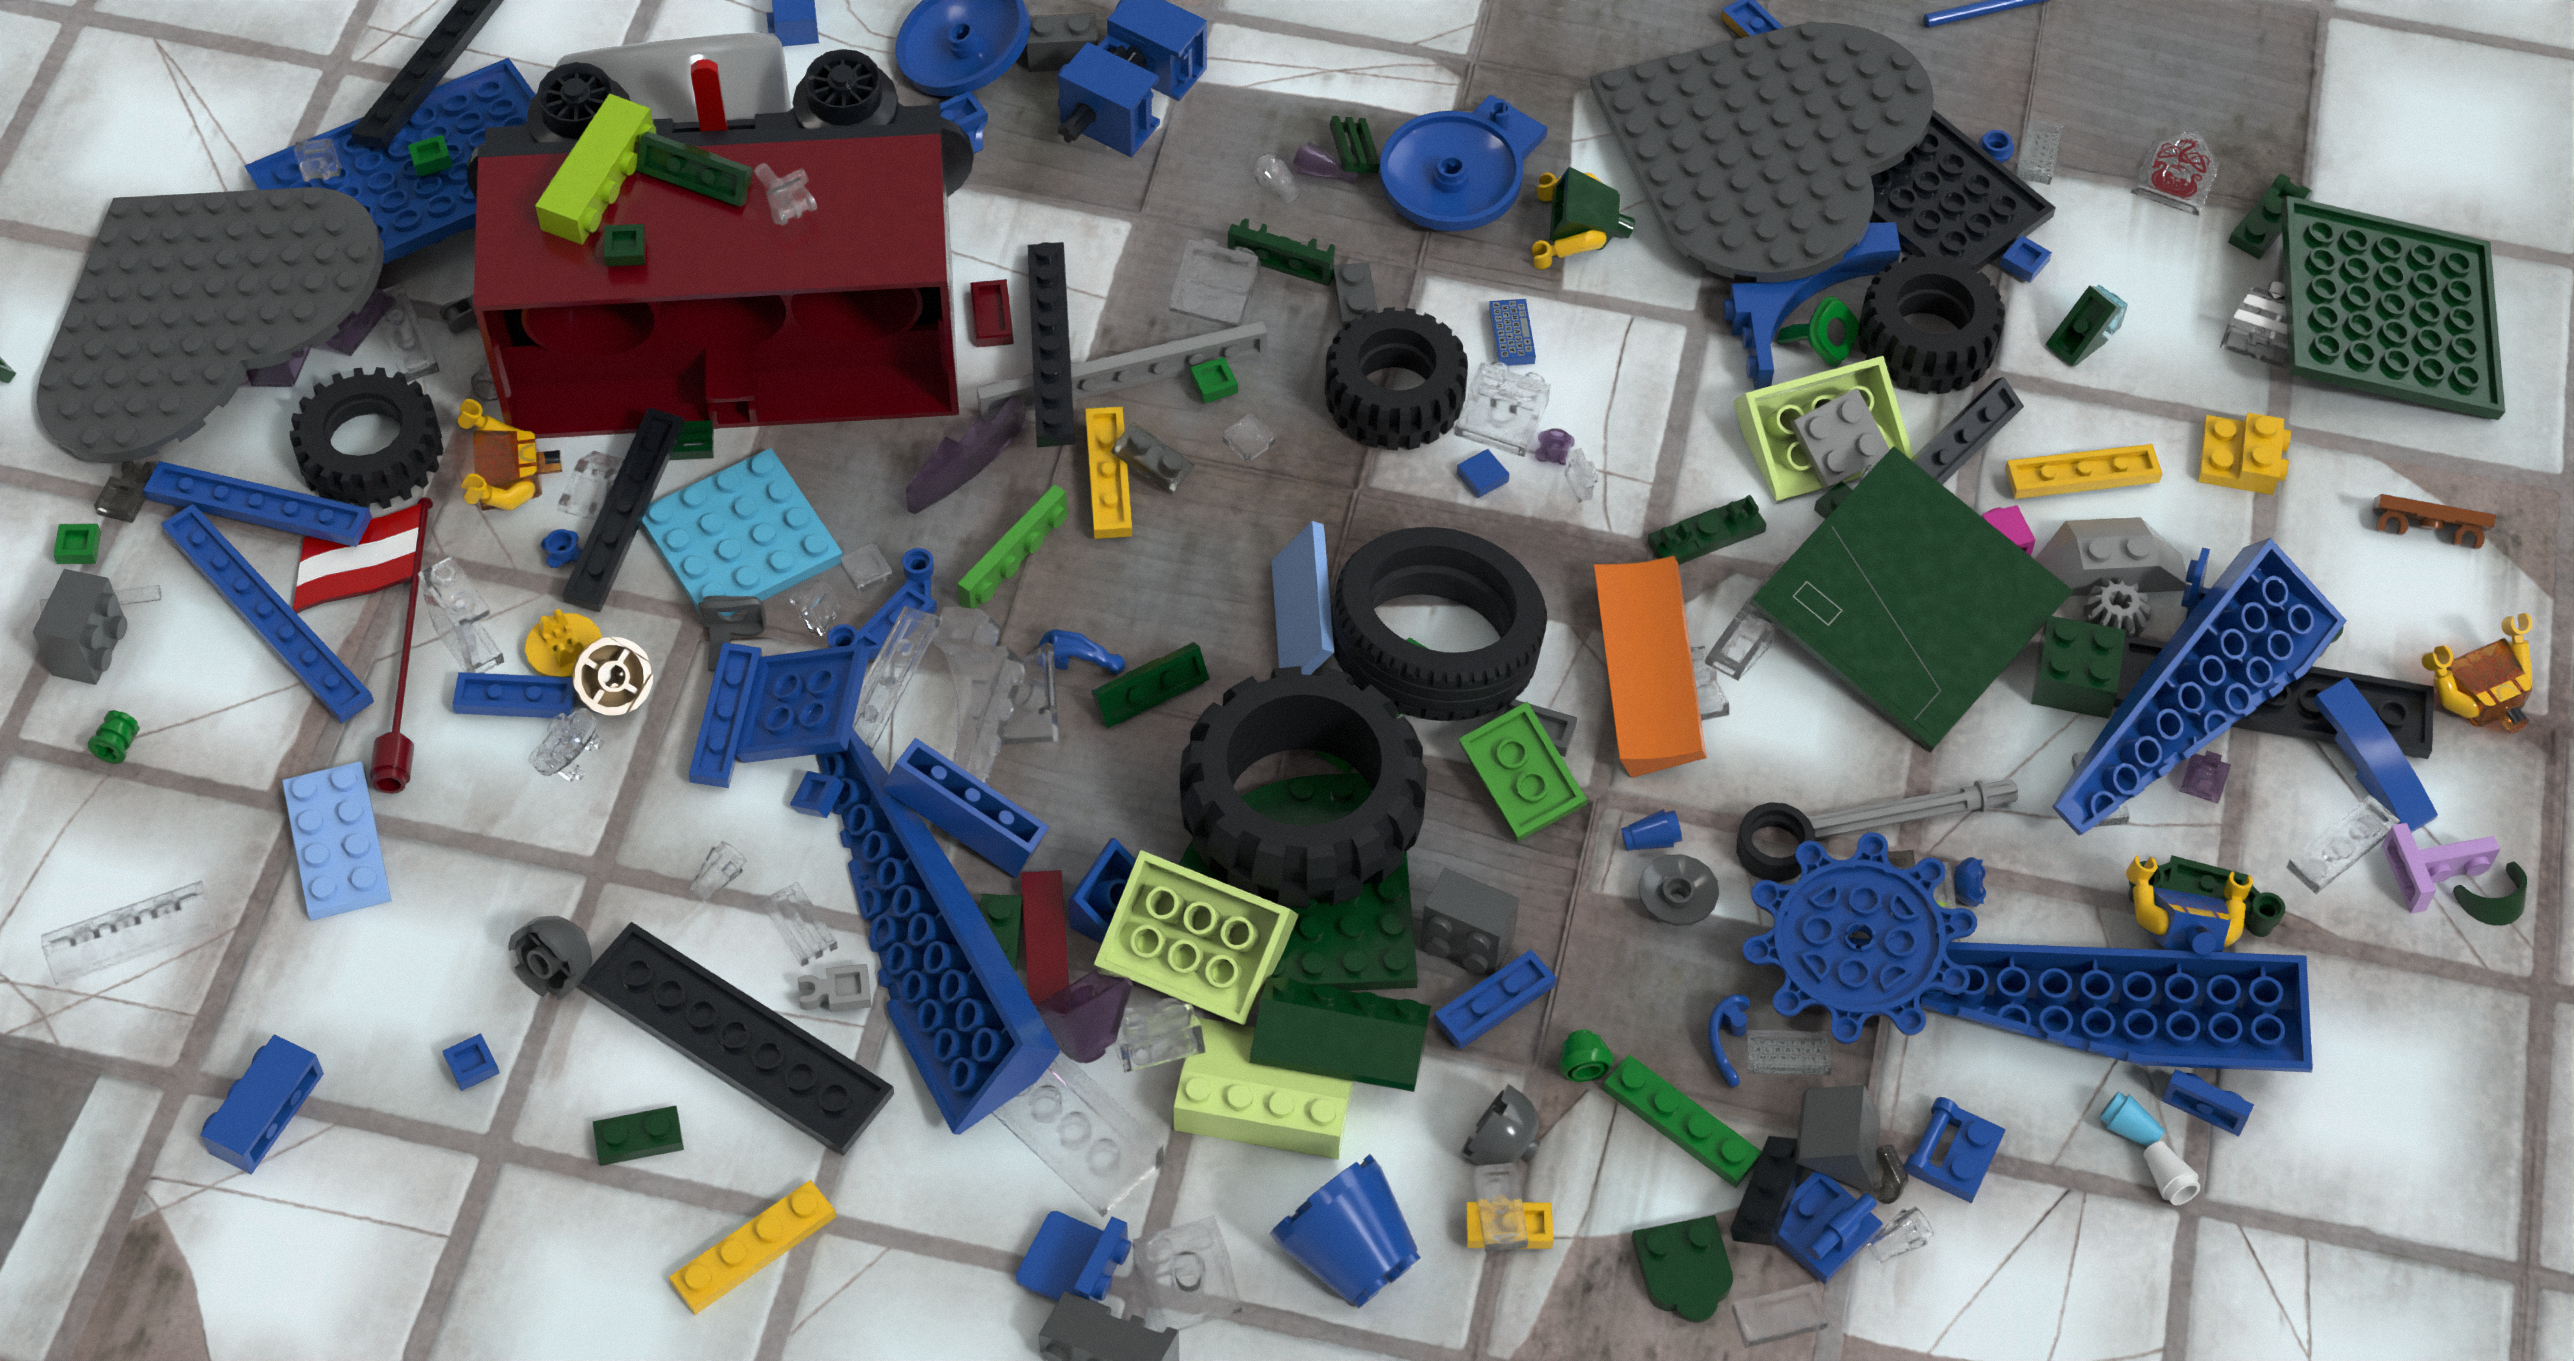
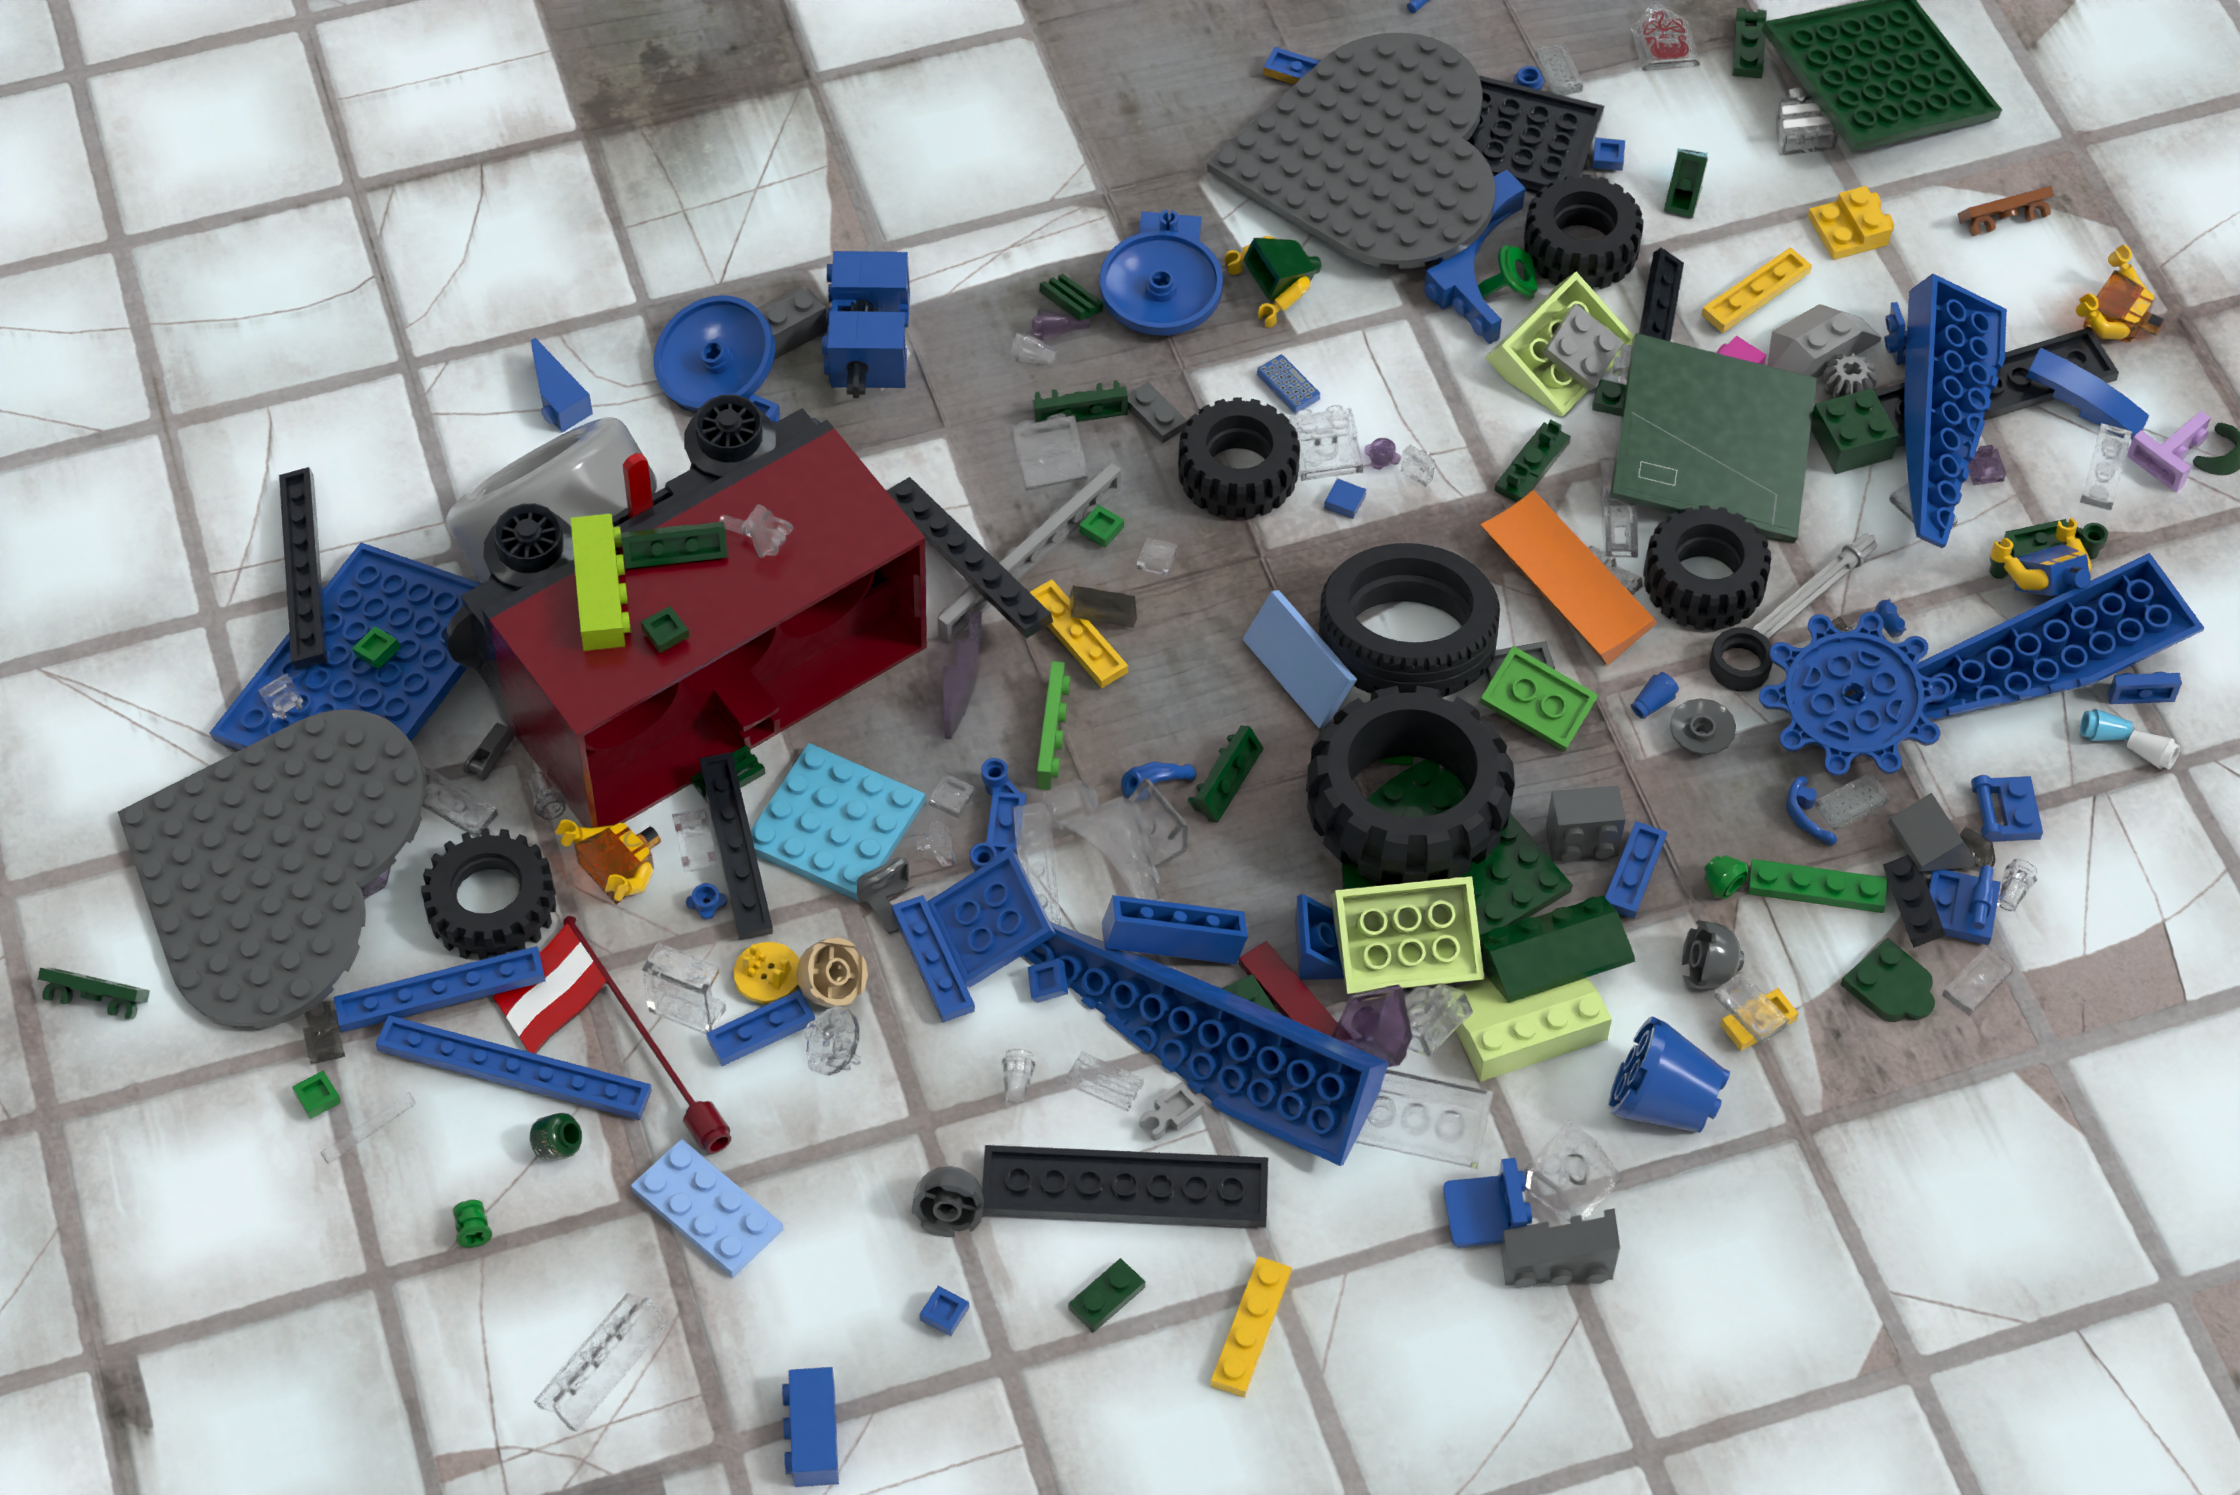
camera: 30 degrees left, 0 degrees up
(80, 627) = (385, 1152): dark grey brick -> none
(246, 696) = (555, 1137): none -> dark green head
(1813, 687) = (1699, 599): none -> black tyre

